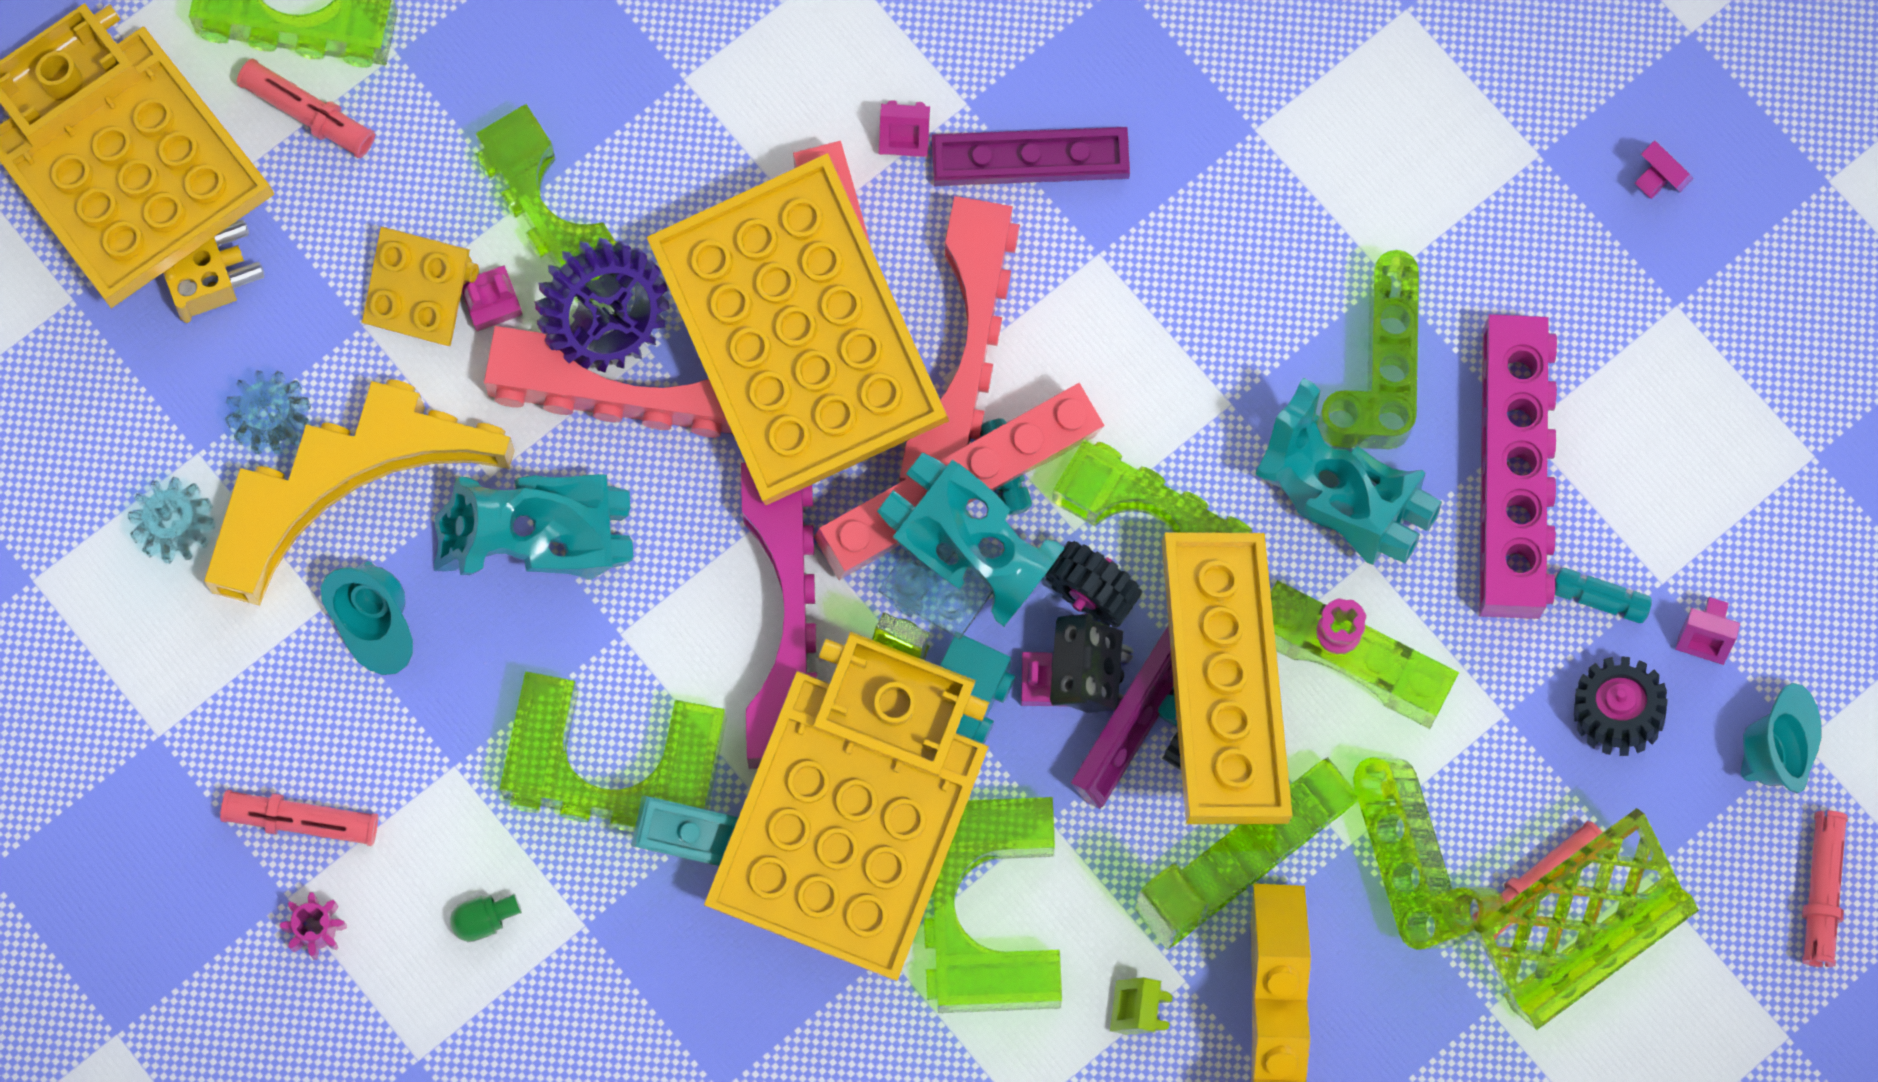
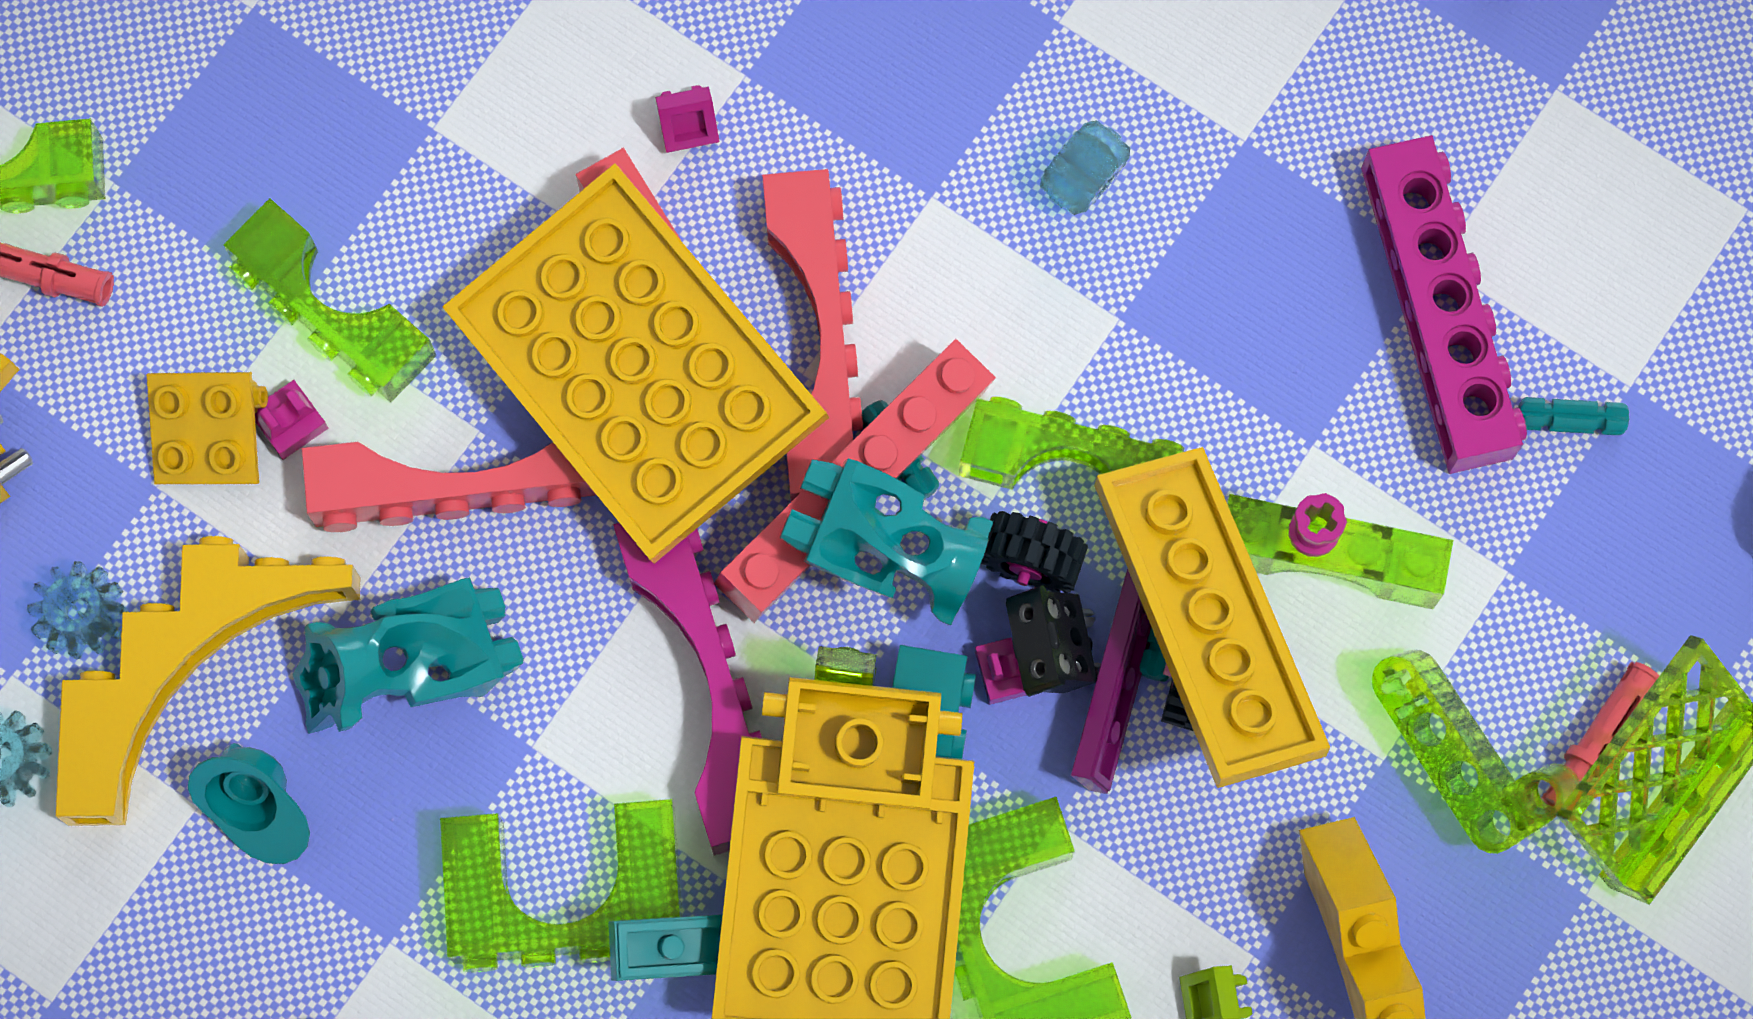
camera: 15 degrees left, 0 degrees up
(620, 271) = (404, 435): dark purple gear -> none
(933, 598) = (865, 615): clear light blue hinge -> none
(1030, 156) = (829, 112): magenta tile -> none
(1184, 899) = (1277, 806): clear neon green beam -> none
(1236, 264) = (1085, 167): none -> clear light blue gear
(1356, 509) = (1298, 377): teal hips -> none
(1383, 349) = (1264, 217): clear neon green beam -> none
(1620, 706) = (1630, 529): black wheel -> none
(1708, 632) = (1699, 424): dark pink tile -> none

